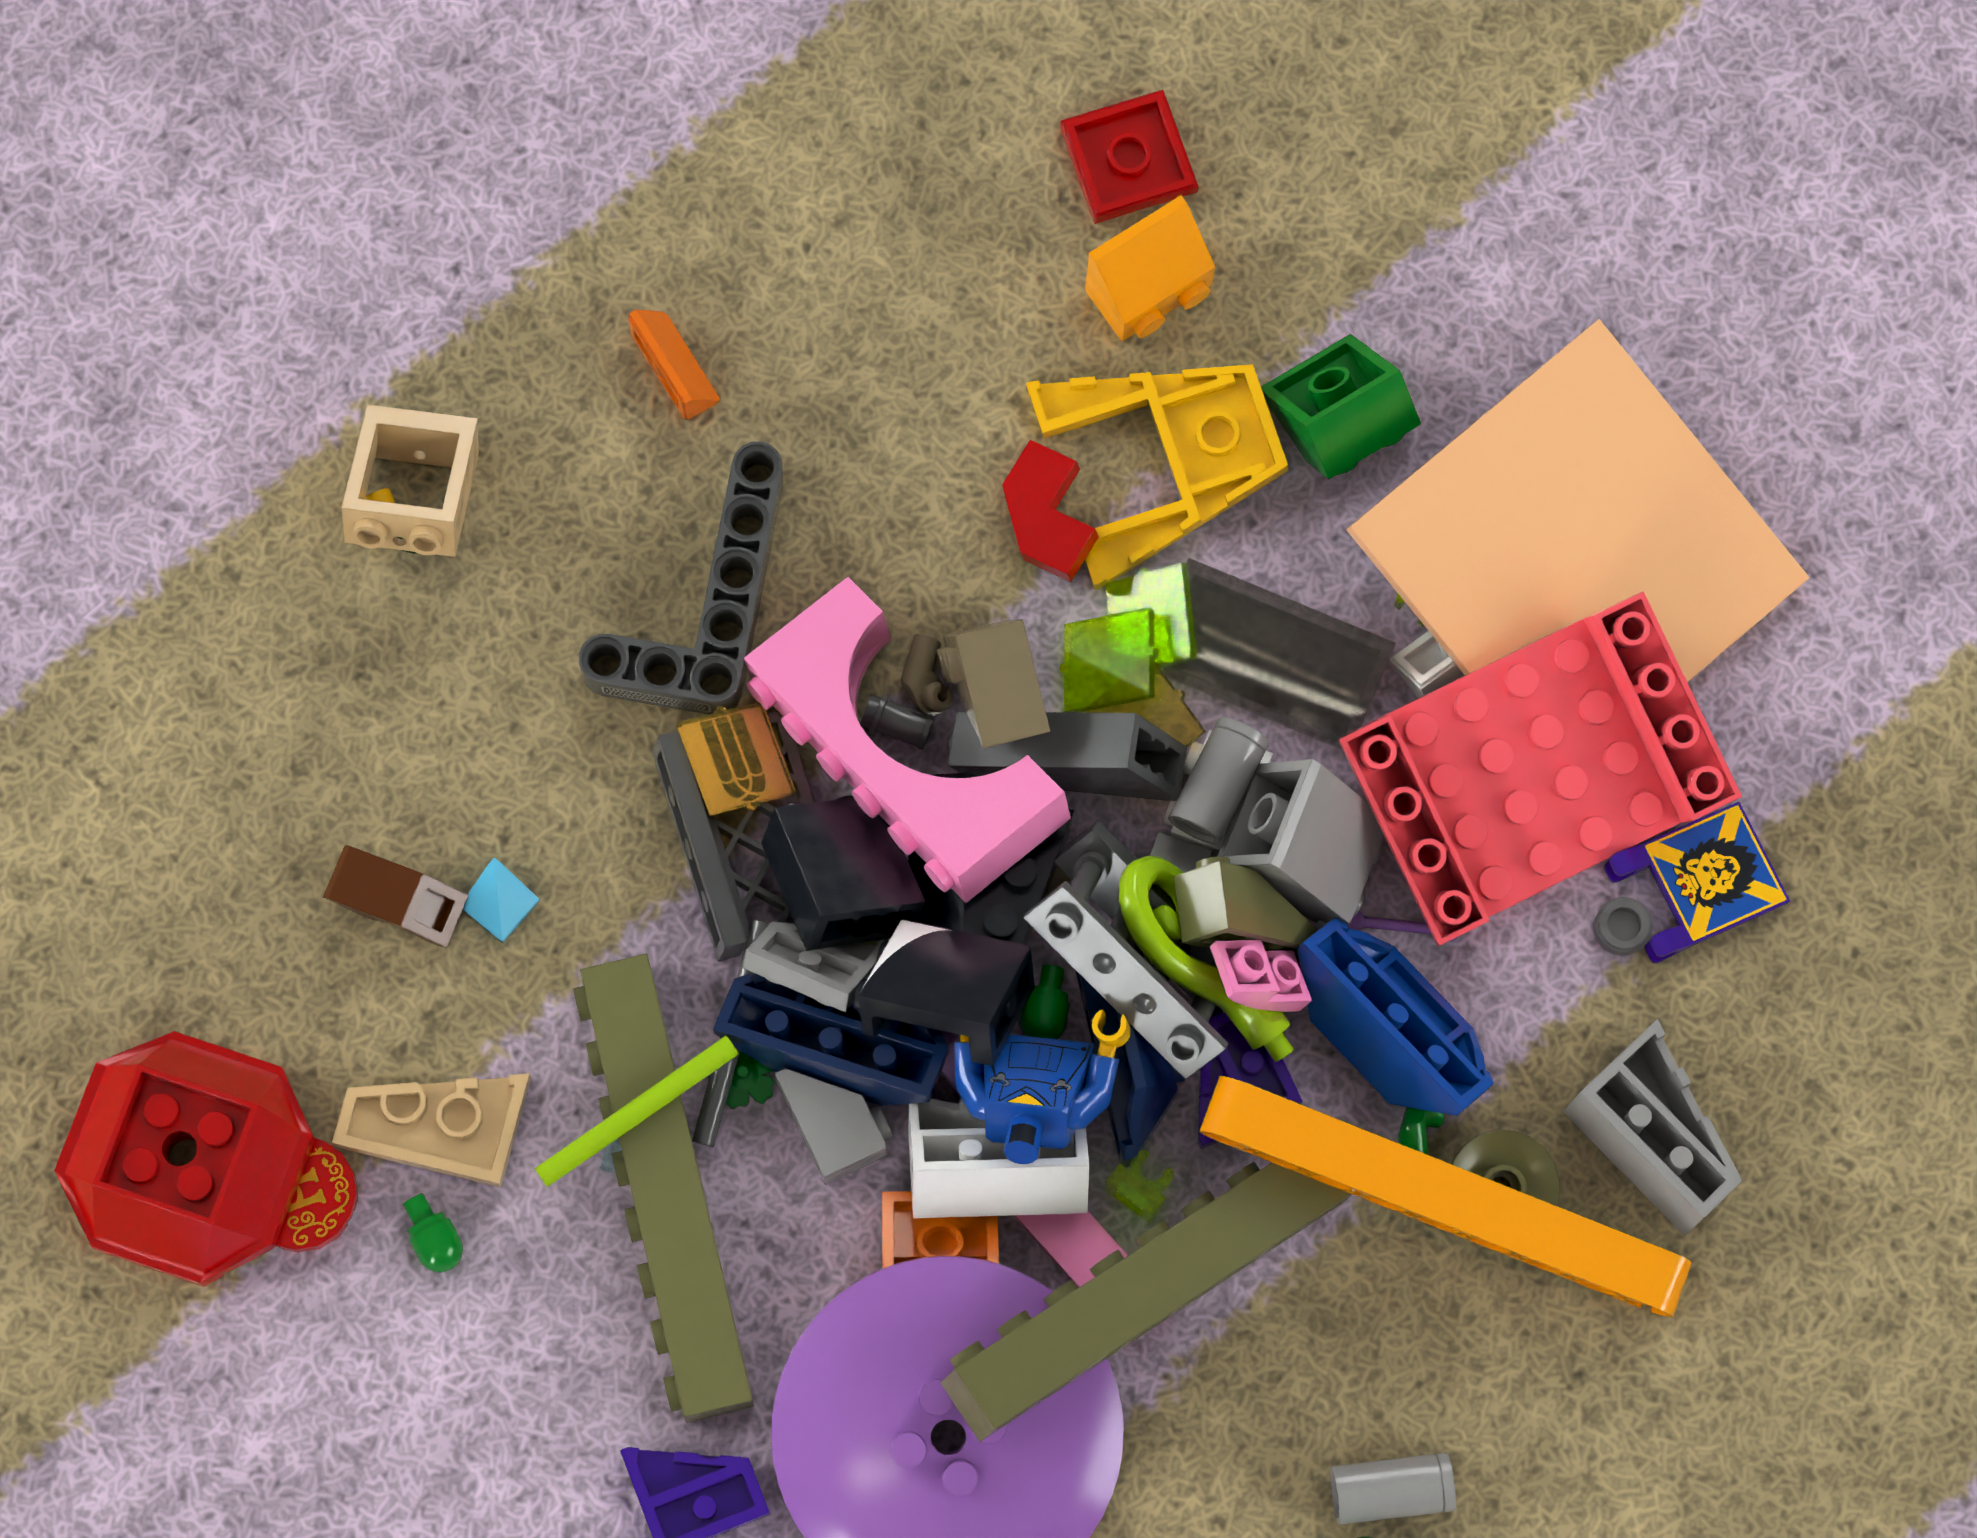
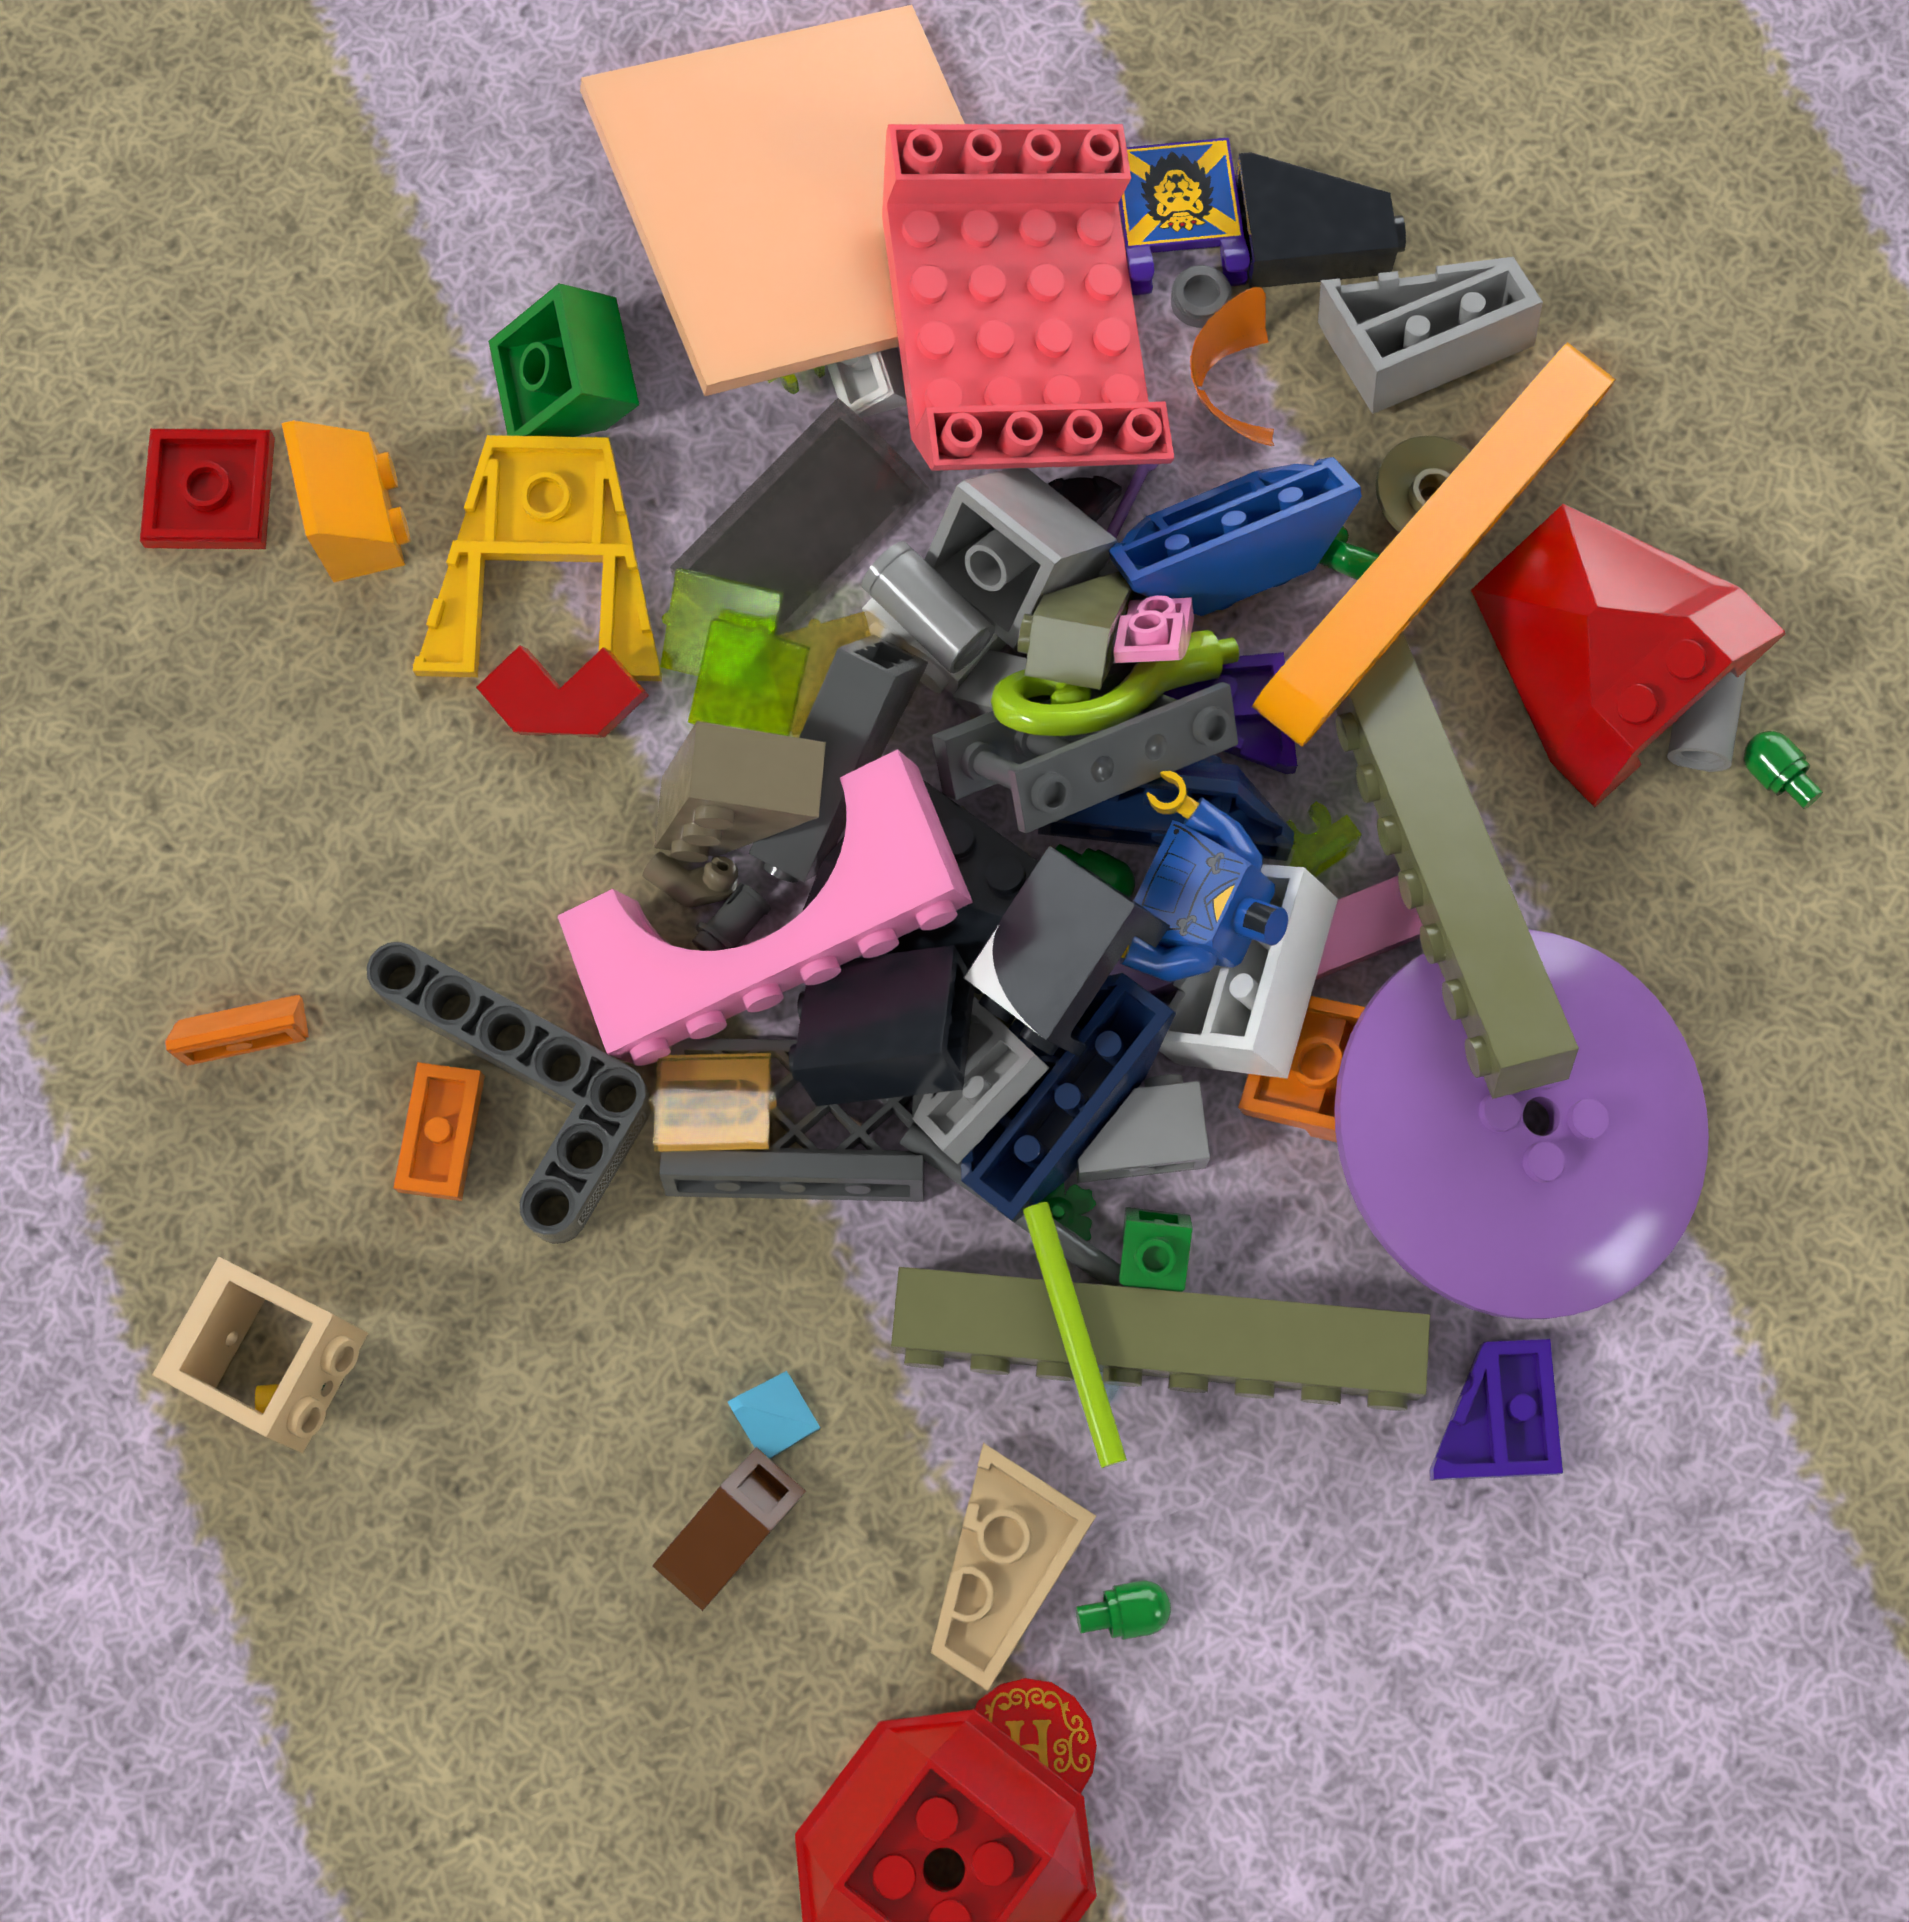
camera: 65 degrees left, 0 degrees up
(641, 551) = (439, 1131): none -> orange plate
(736, 1157) = (1155, 1249): none -> green bracket
(1388, 887) = (1089, 495): none -> black tile
(1416, 1383) = (1612, 641): none -> red wedge
(1596, 960) = (1231, 329): none -> orange piece
(1722, 999) = (1313, 224): none -> black slope

